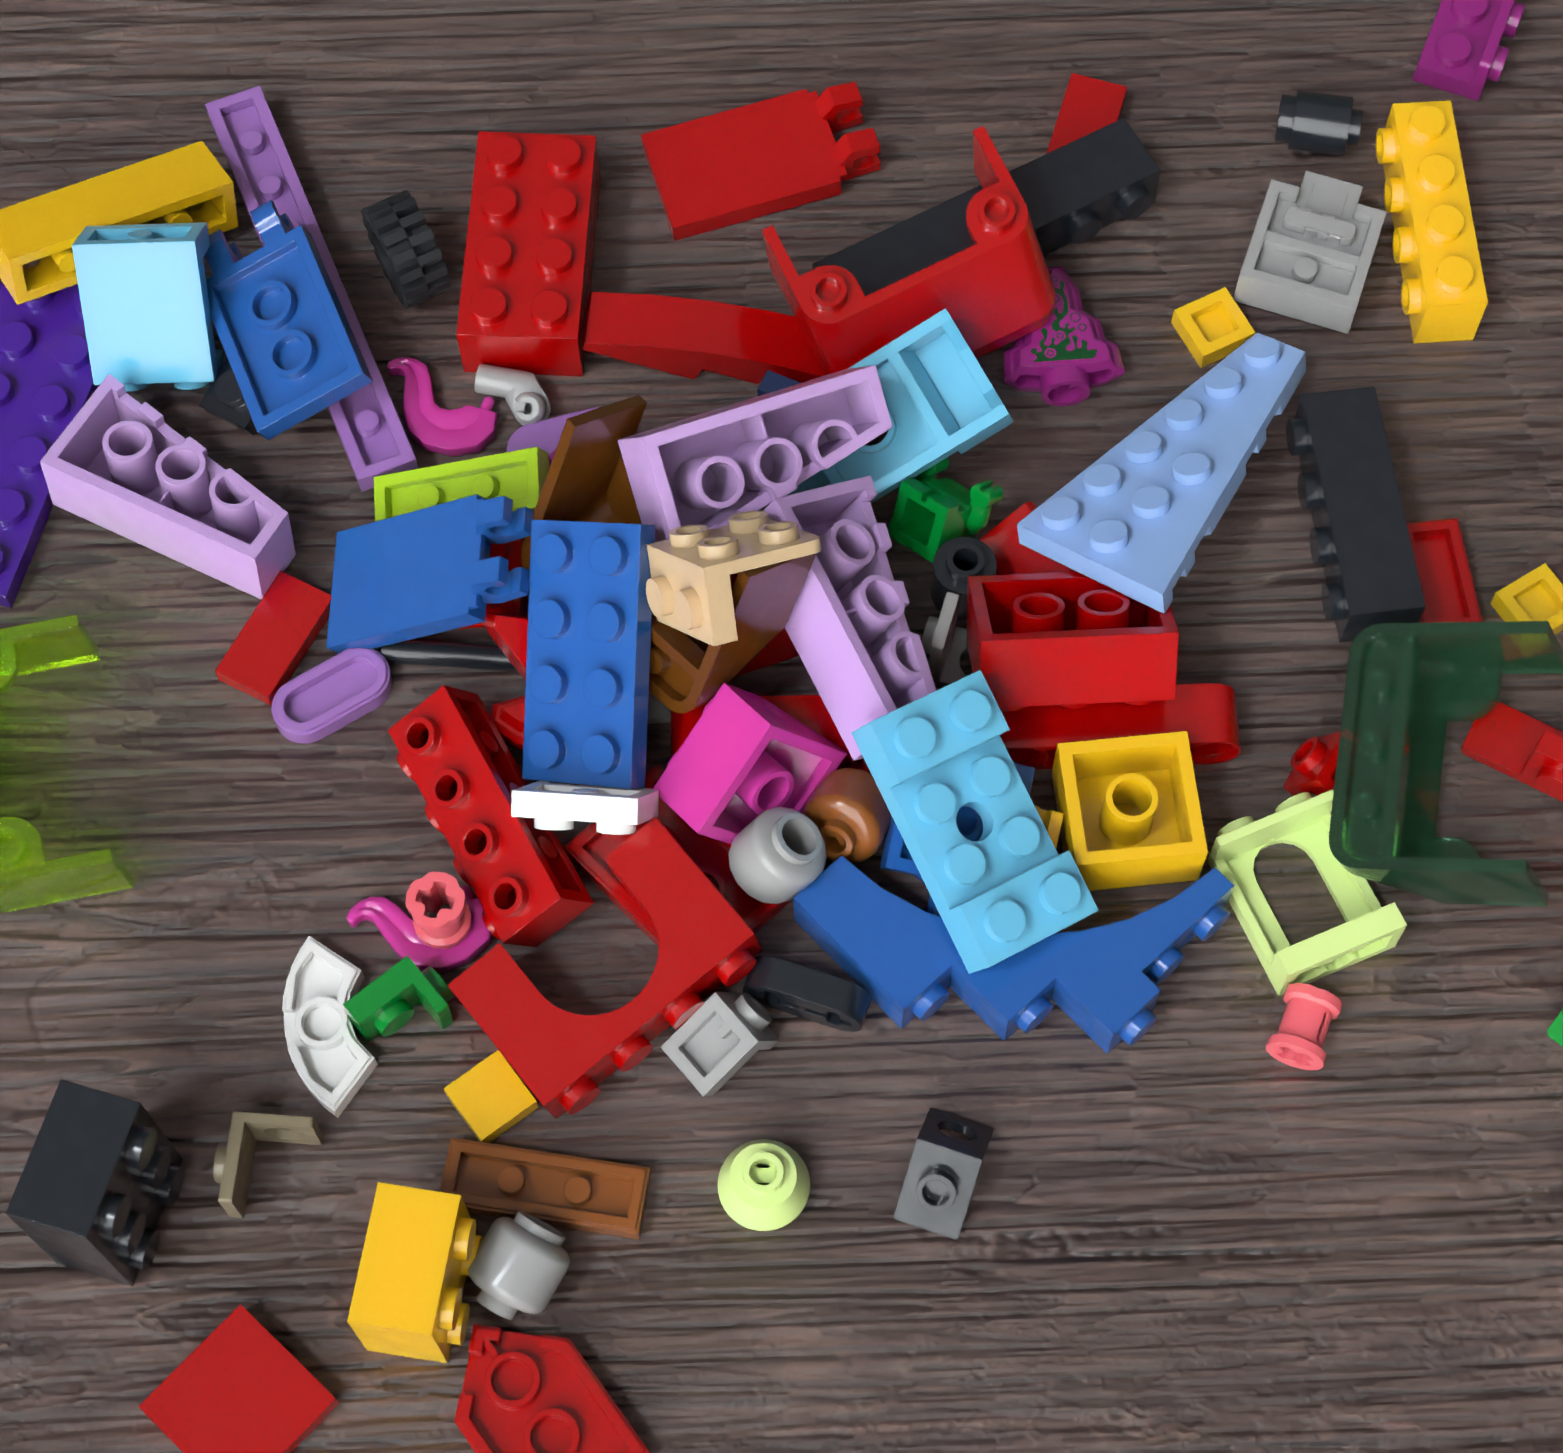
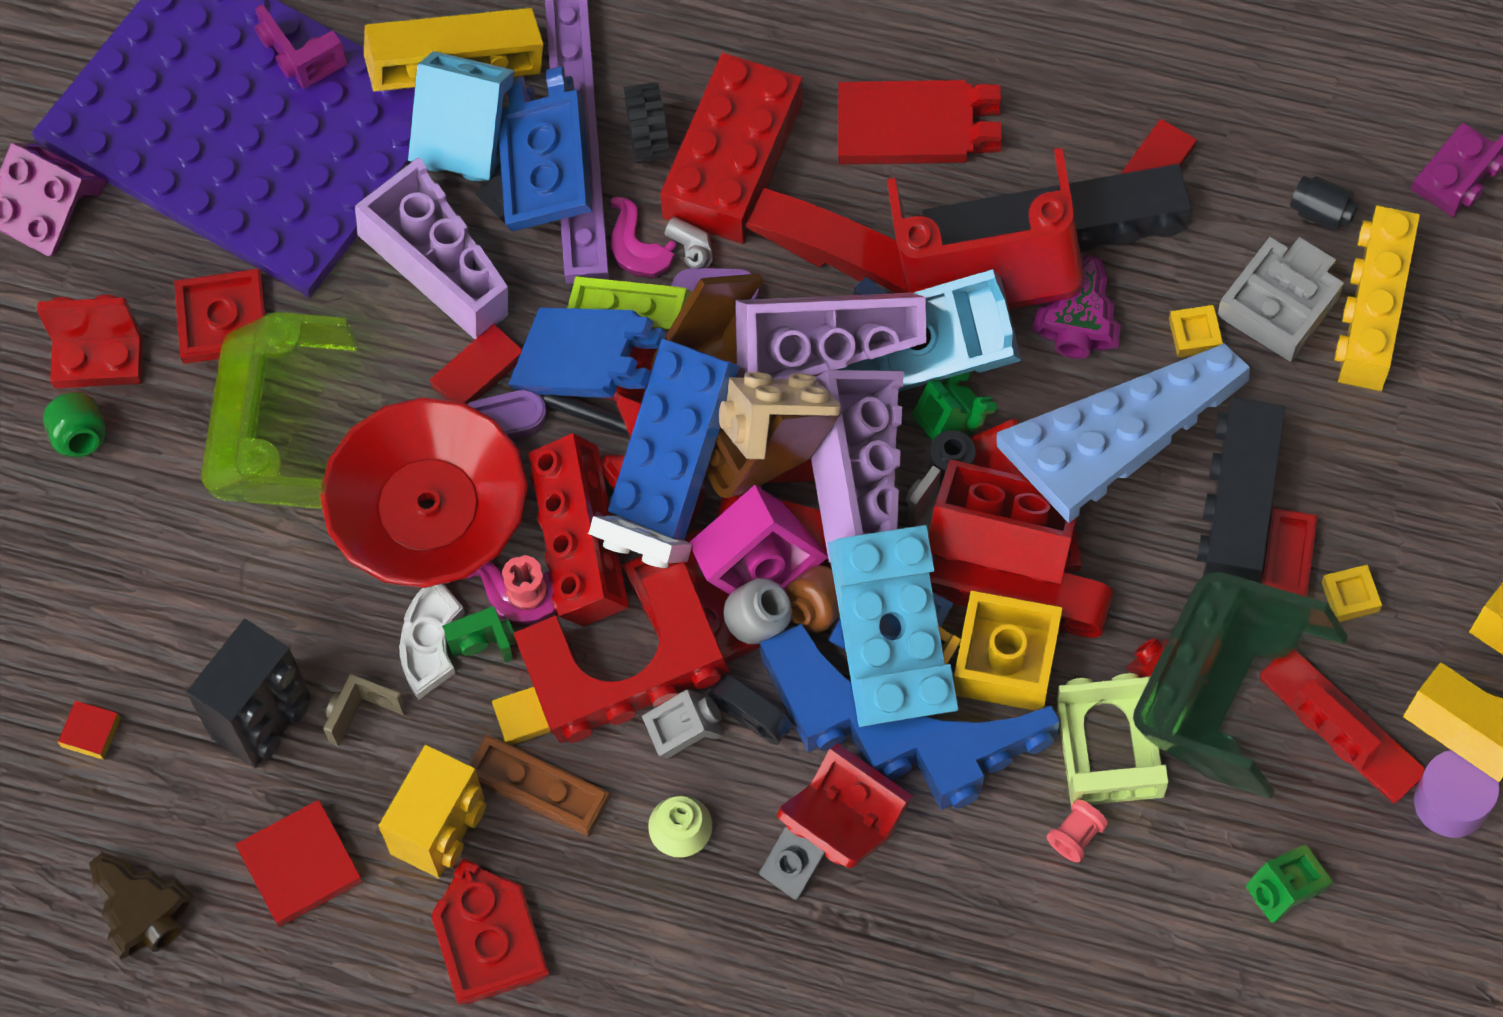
camera: 20 degrees right, 0 degrees up
(246, 771) = (417, 455): none -> red dish
(519, 1265) = (503, 828): light grey head -> none
(987, 1091) = (846, 808): none -> red bracket

